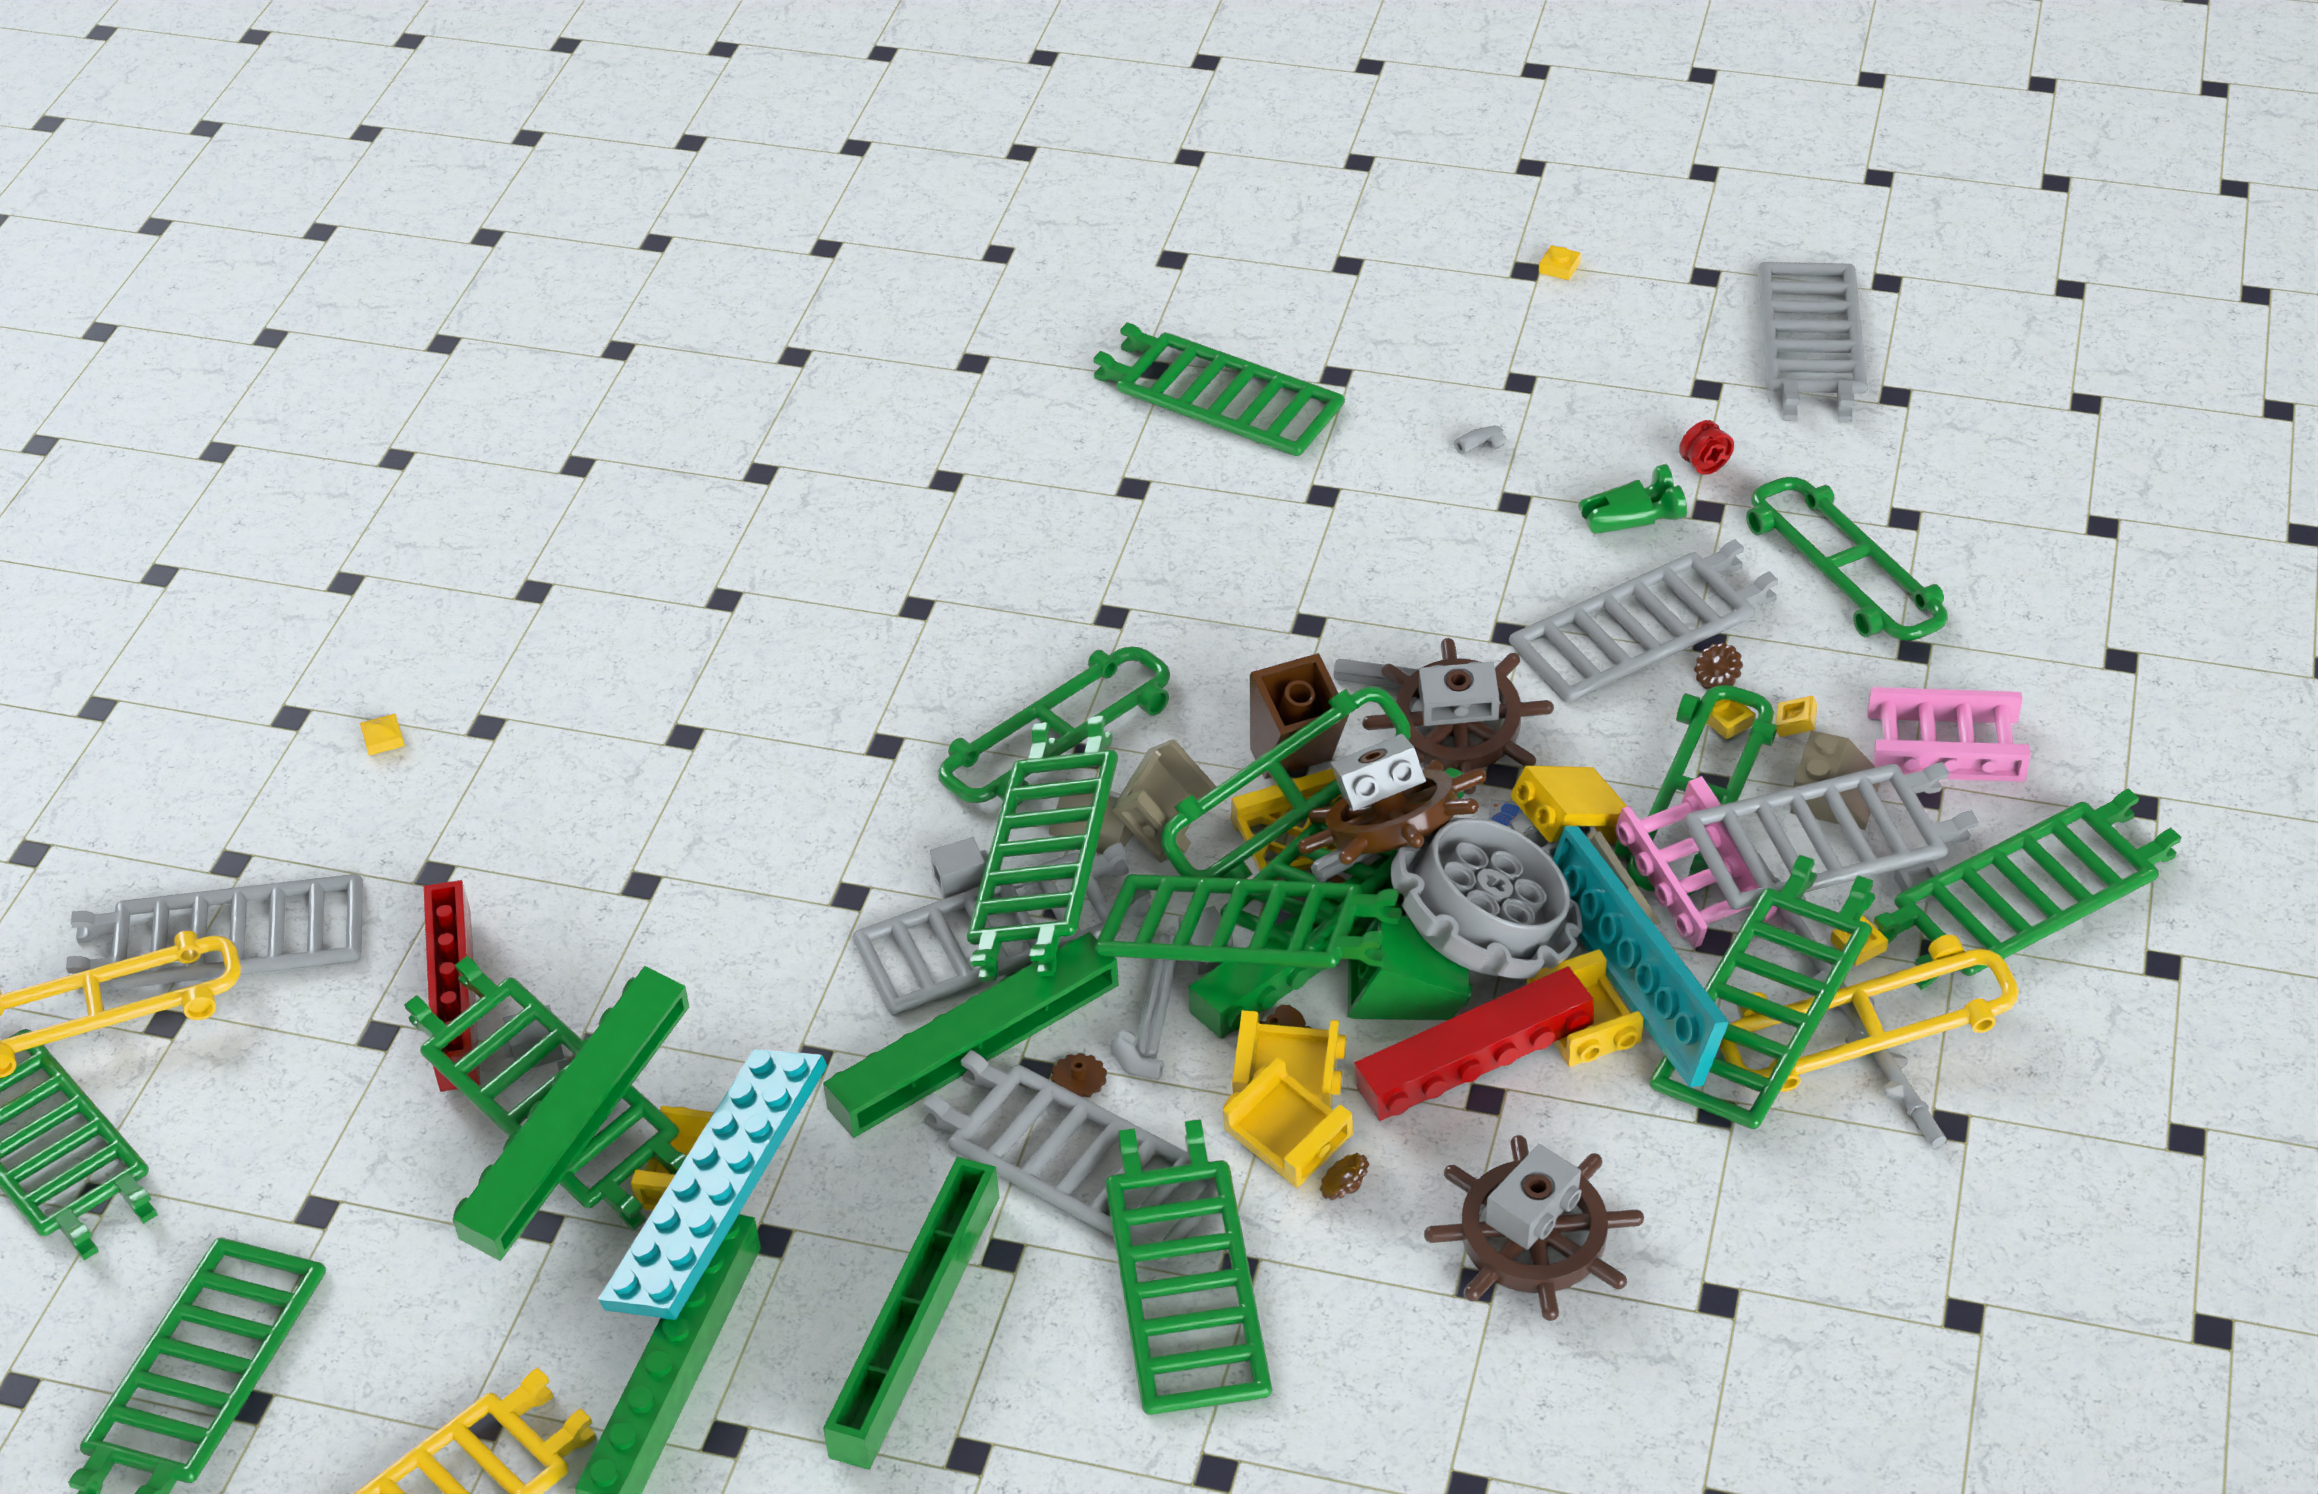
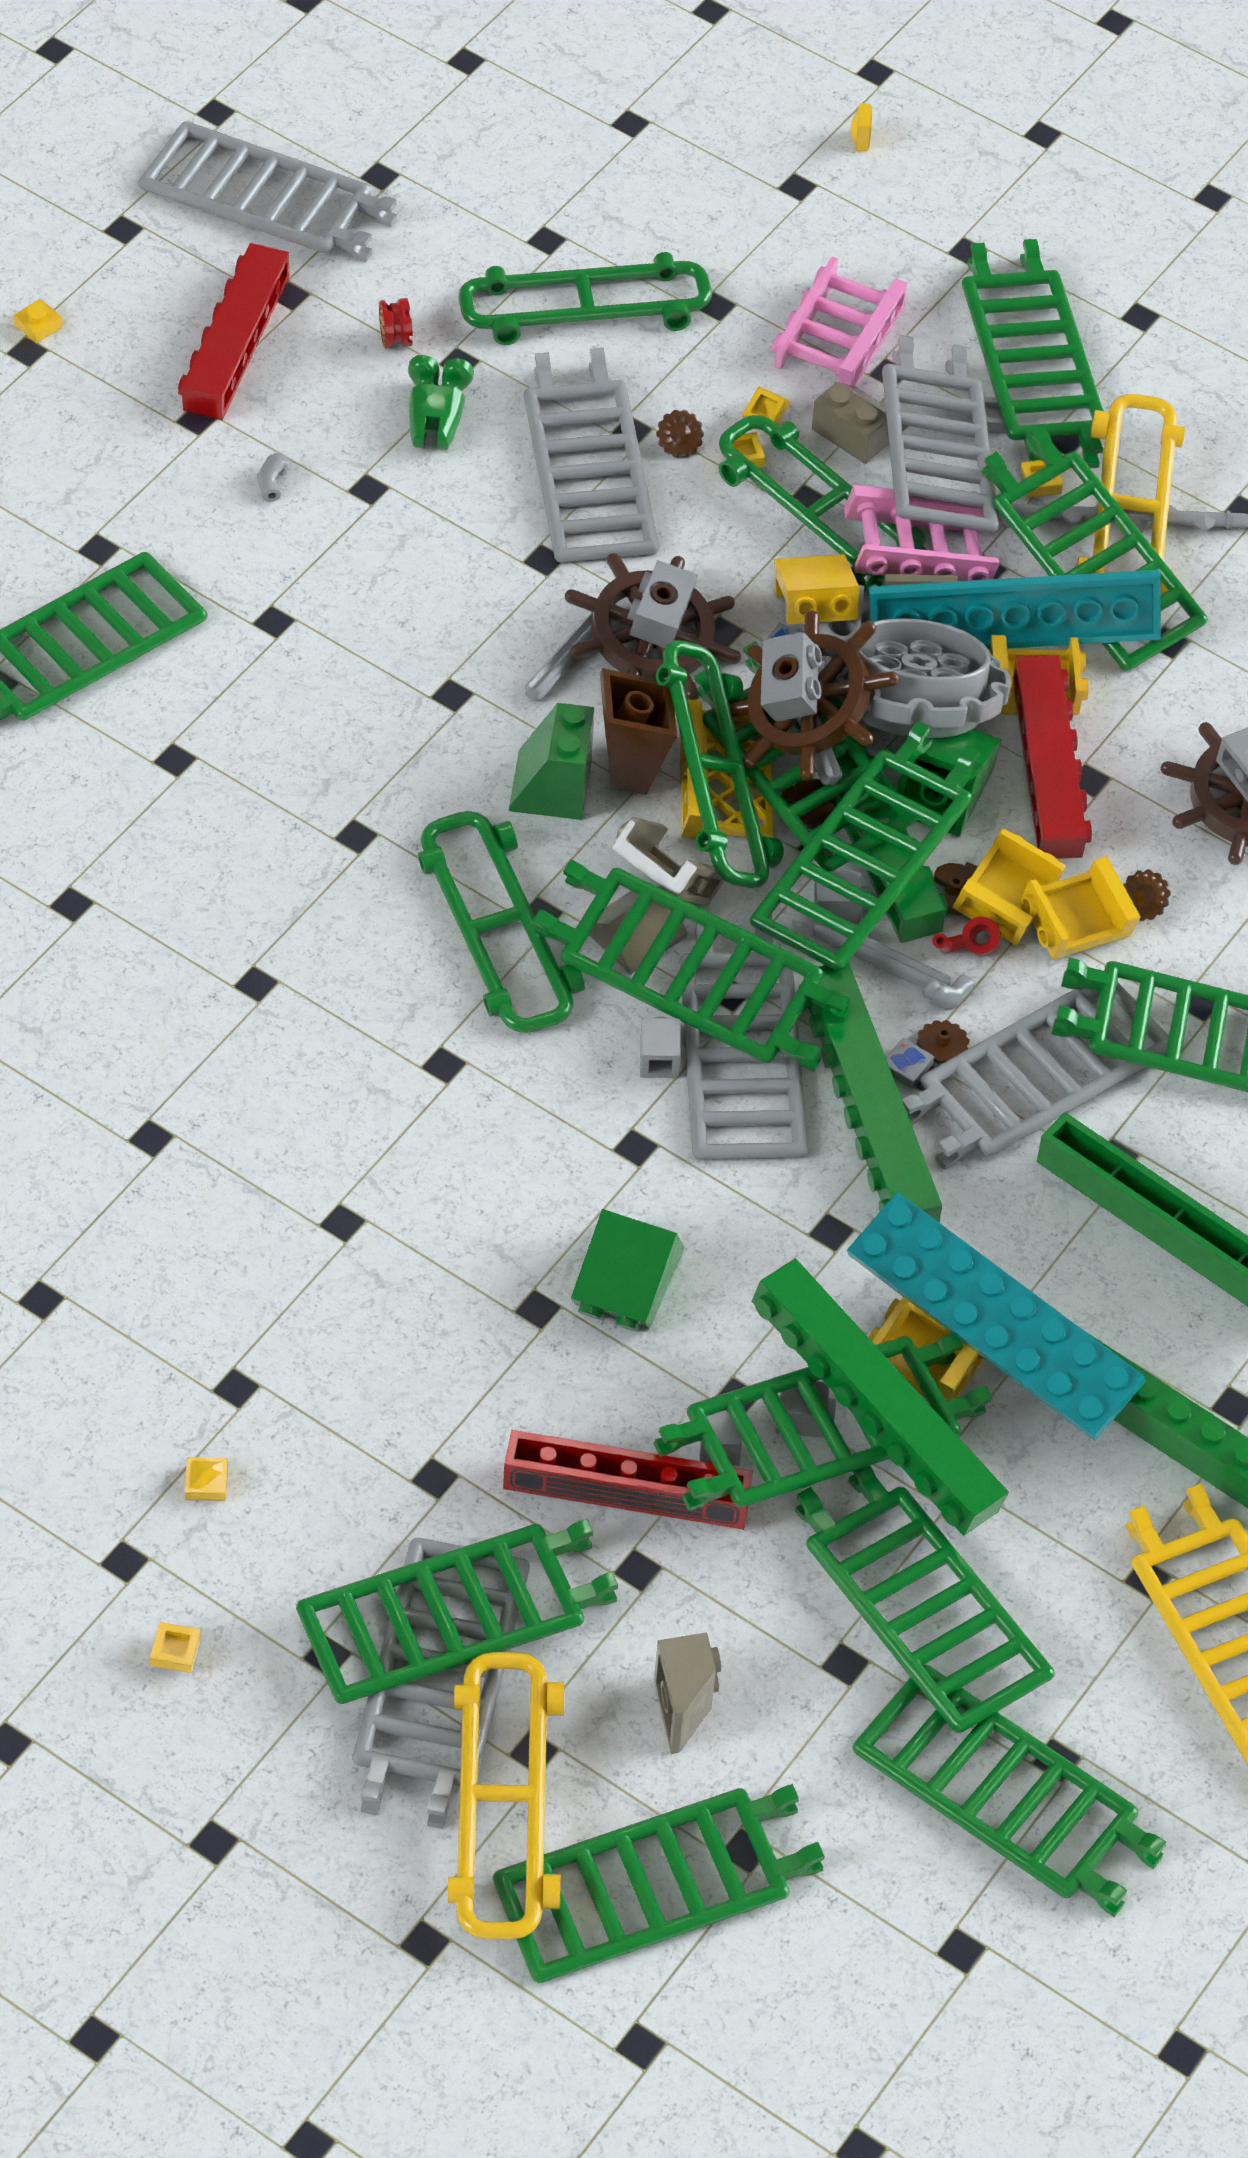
camera: 75 degrees left, 10 degrees up
(203, 765) = (175, 1647): none -> yellow plate
(224, 1084) = (685, 1684): none -> dark tan slope
(316, 987) = (548, 1547): none -> green bar
(451, 1149) = (880, 1502): none -> green bar
(691, 917) = (626, 1270): none -> green slope
(1036, 1053) = (909, 1063): none -> light grey tile
(1214, 1058) = (968, 938): none -> red plate
(1225, 695) = (555, 764): none -> green slope
(1628, 364) = (234, 331): none -> red brick
(2231, 673) = (861, 127): none -> yellow tile

